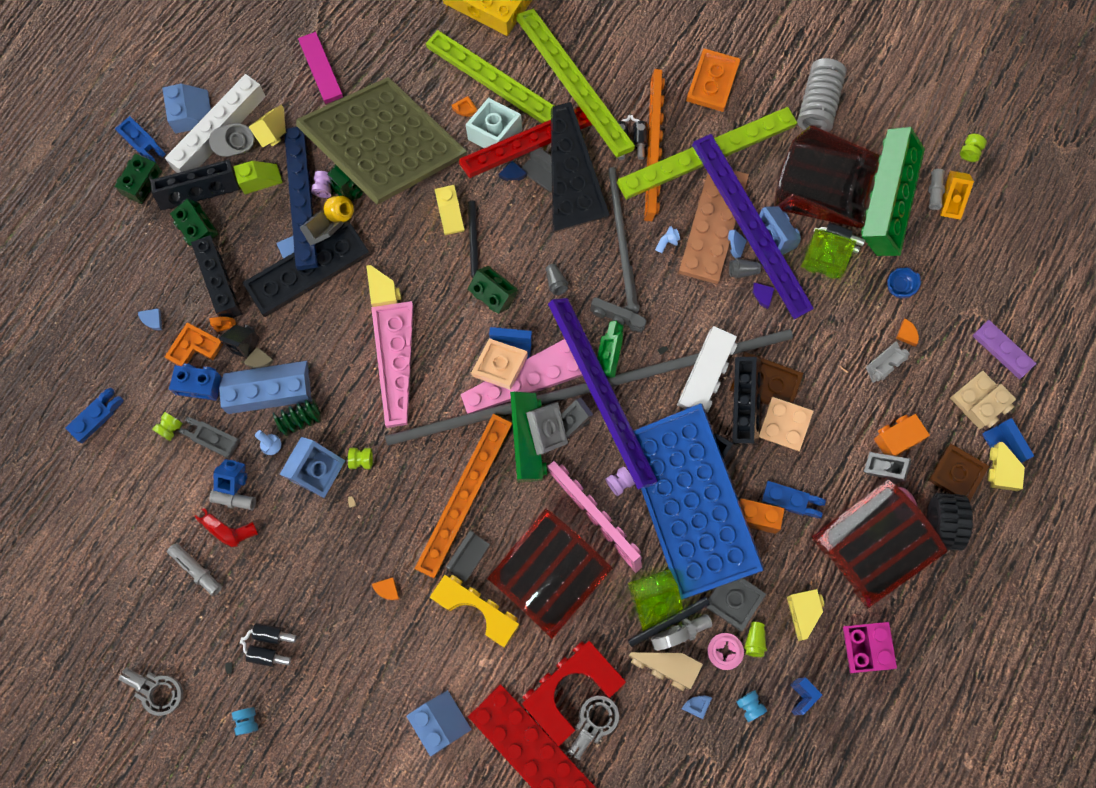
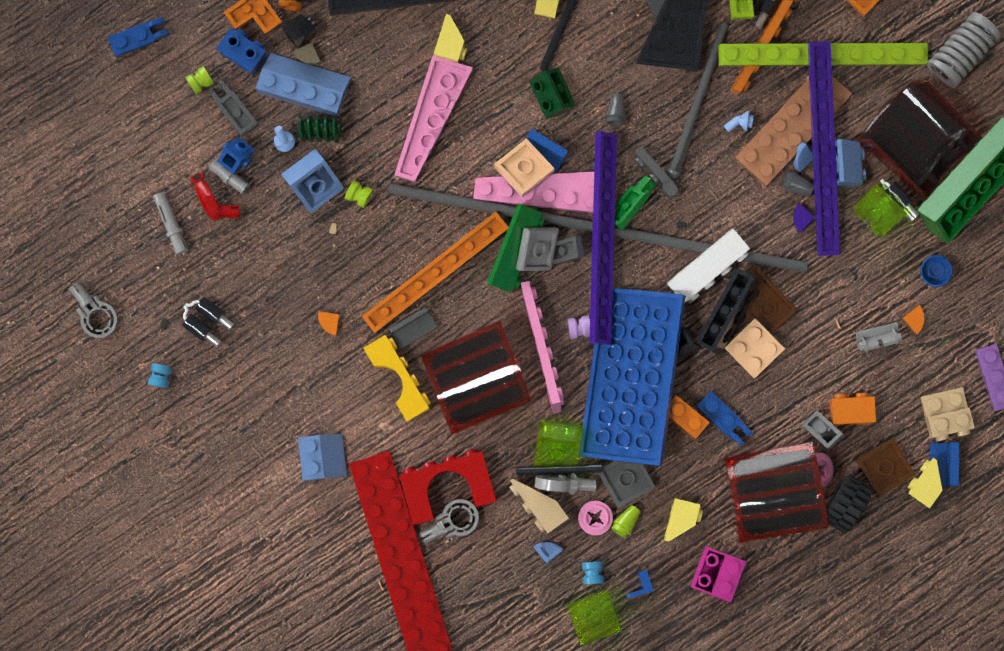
camera: 25 degrees right, 10 degrees up
(774, 749) = (594, 617): none -> clear neon green slope

